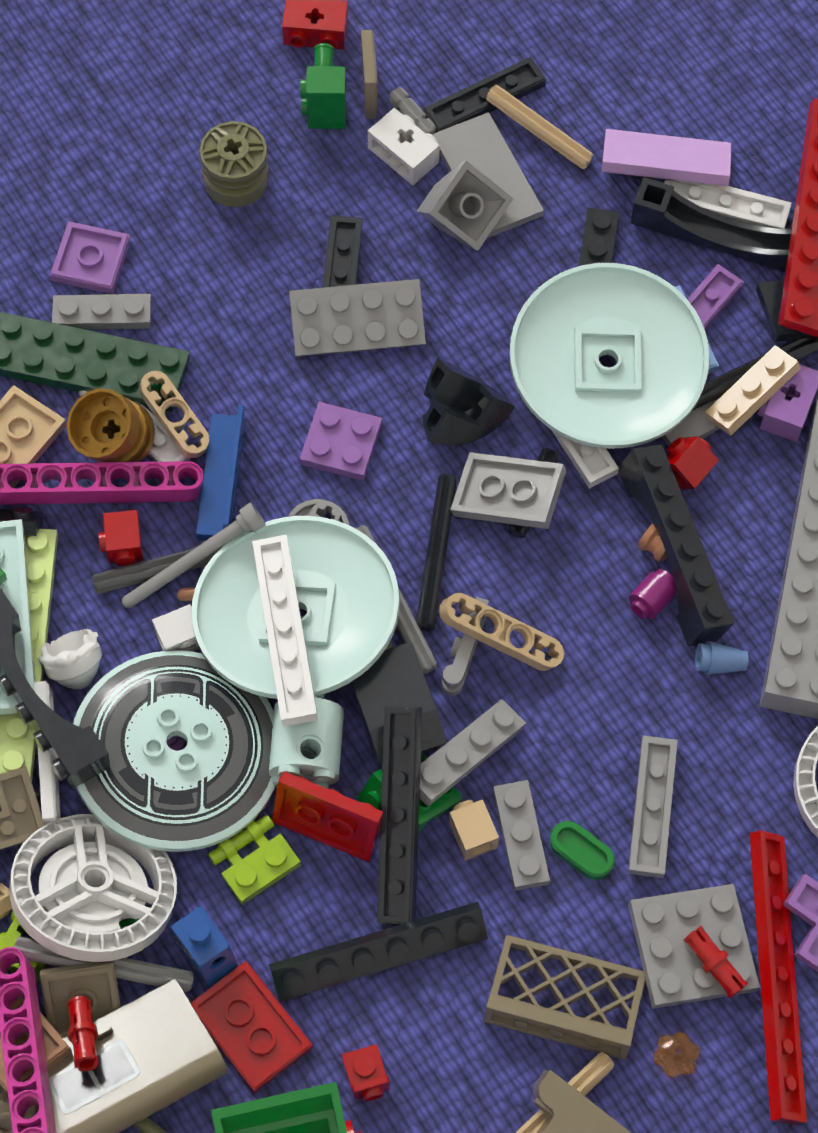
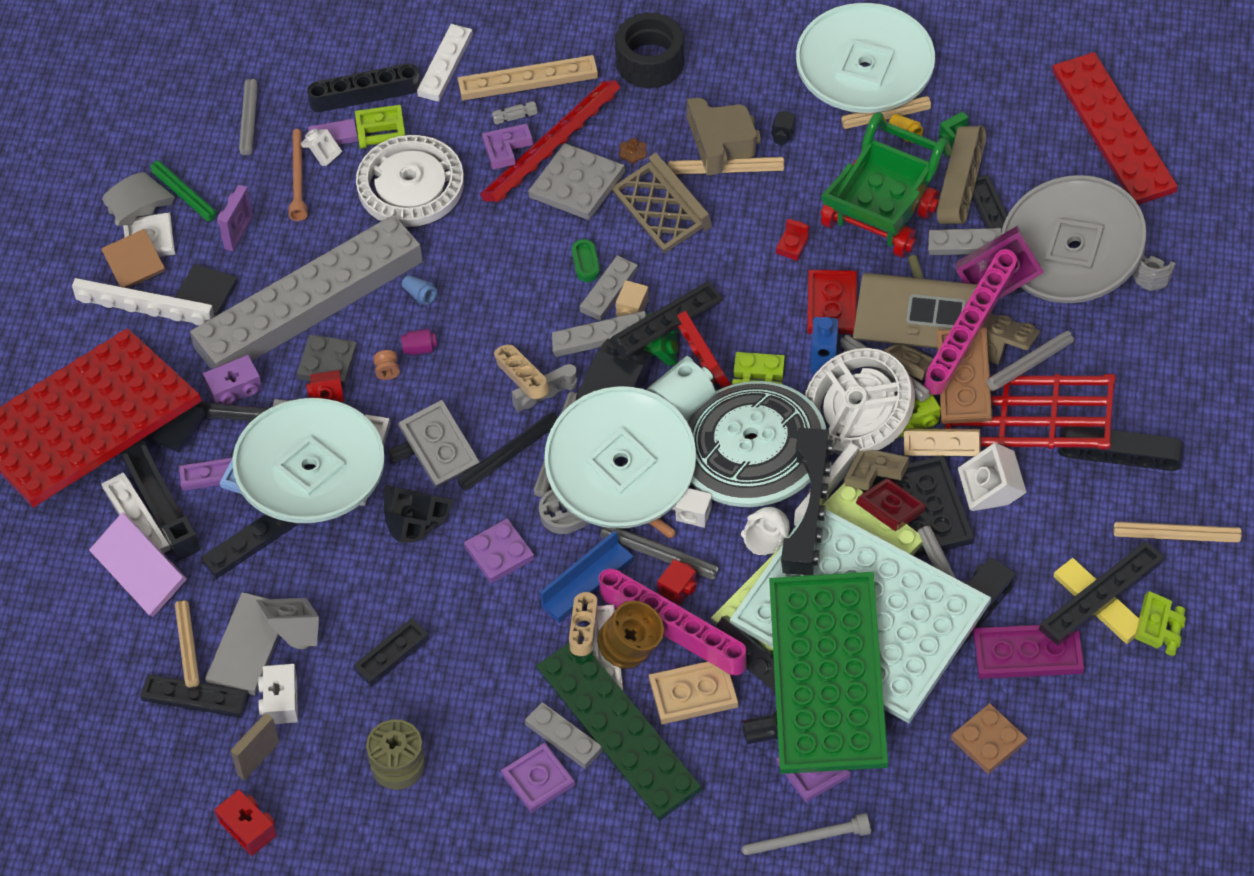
camera: 135 degrees left, 10 degrees down
(82, 1033) = (924, 331): red pin -> none
(247, 521) = (602, 522): light grey piece -> none
(285, 631) = (641, 436): white plate -> none
(324, 91) = (295, 757): green brick -> none
(357, 317) = (419, 607): light grey plate -> none
(378, 951) = (744, 285): black plate -> none
(408, 106) = (250, 713): light grey axle -> none
(652, 807) = (529, 250): light grey plate -> none
(701, 604) = (358, 387): black arch -> none
(715, 961) = (577, 156): red pin -> none
(728, 506) = (326, 355): none -> dark grey plate
(752, 390) = (249, 392): plate -> none

